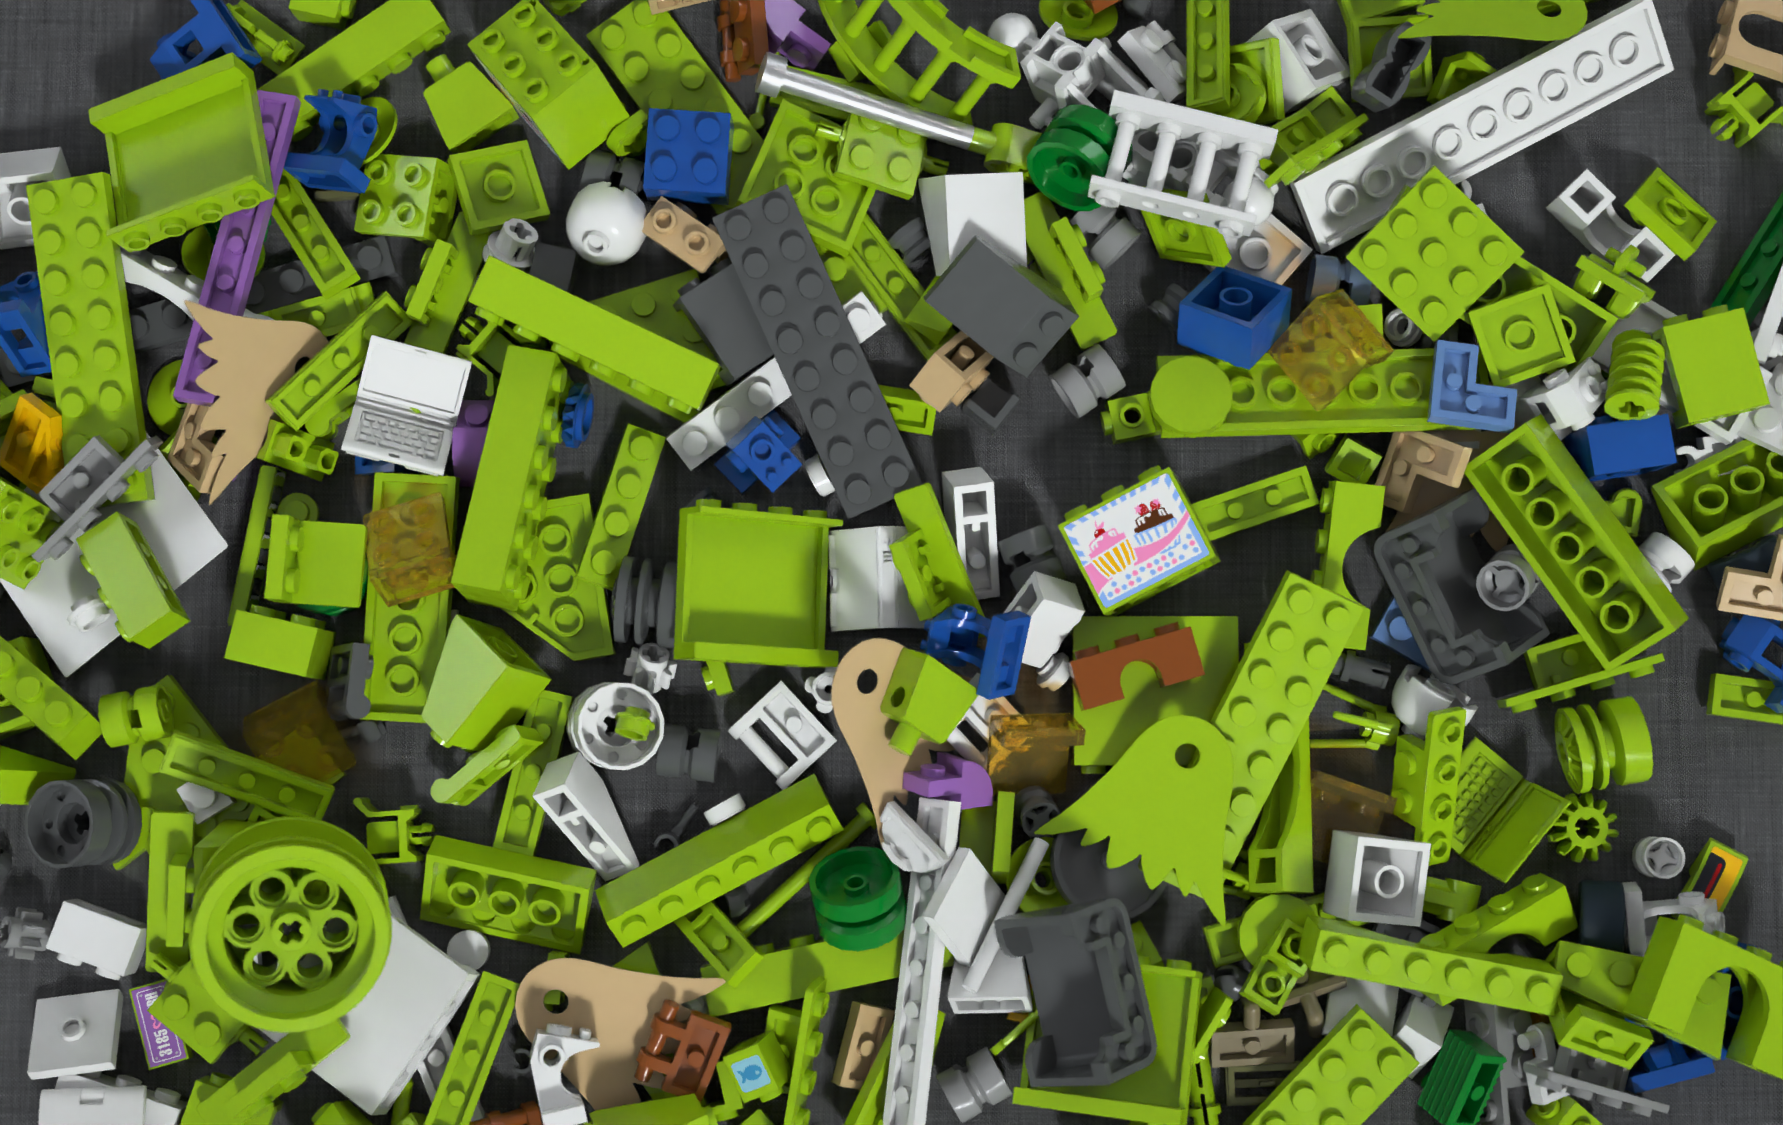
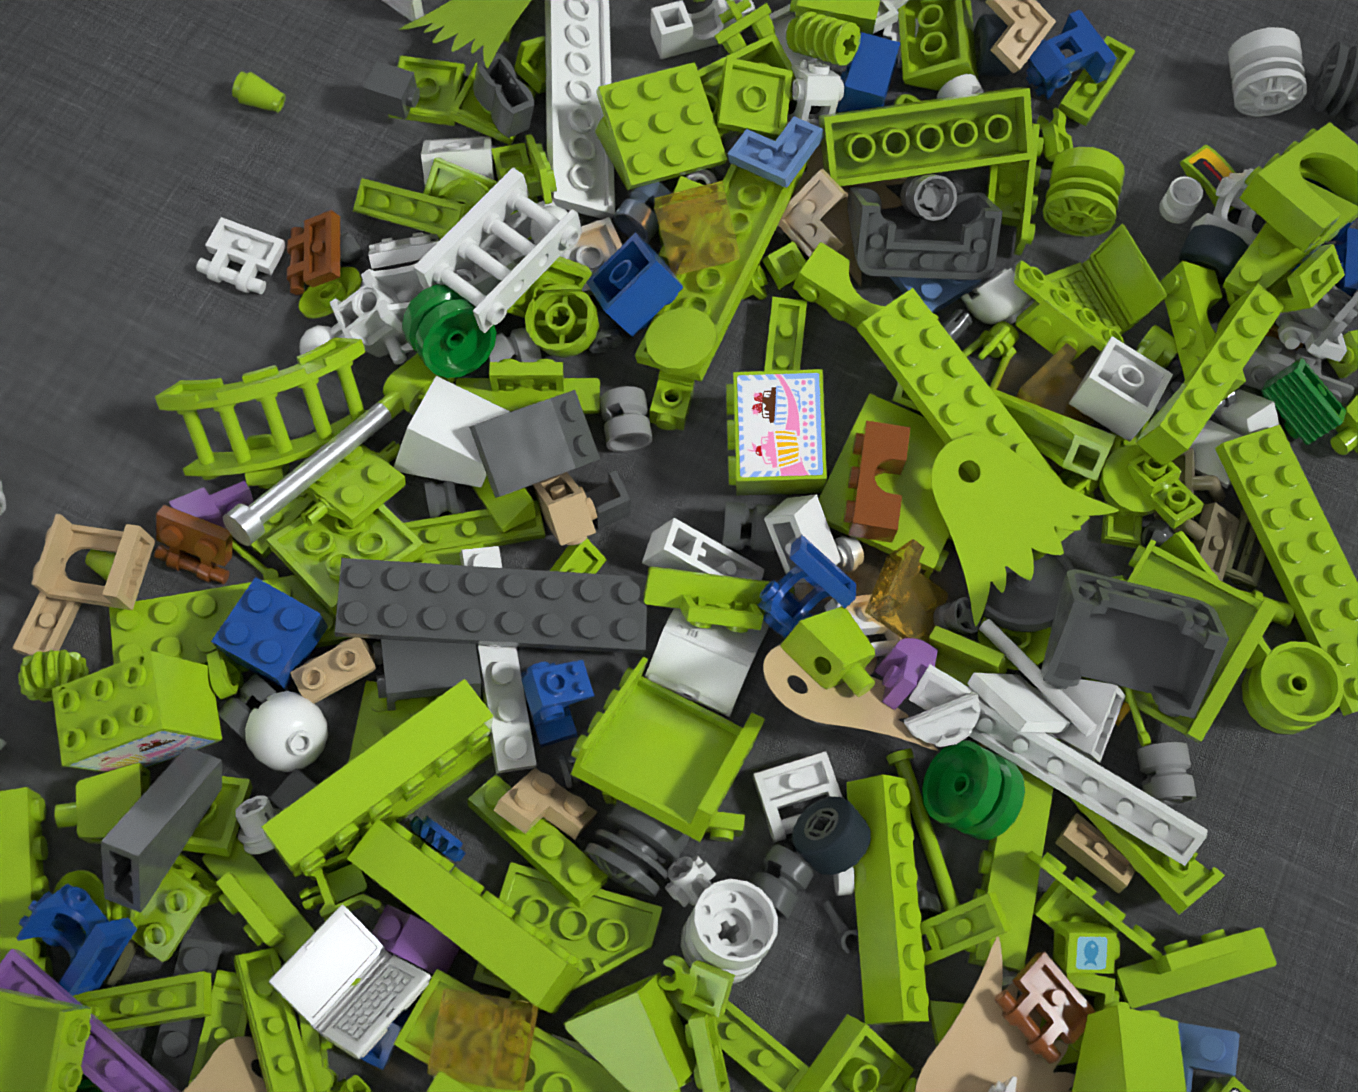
camera: 70 degrees left, 15 degrees down
(459, 162) = (157, 828): none -> dark grey slope
(553, 724) = (703, 984): none -> lime plate
(585, 813) = (793, 998): white slope -> none
(634, 723) = (738, 909): lime plate -> none
(662, 492) = (541, 797): none -> tan plate
(750, 781) = (831, 835): none -> black wheel
(817, 686) = (785, 733): white plate -> none
(819, 475) = (596, 660): white tile -> none
(1153, 264) = (562, 320): none -> lime cylinder
(1597, 826) = (1145, 233): lime gear -> none
(1665, 688) = (1054, 135): none -> lime plate

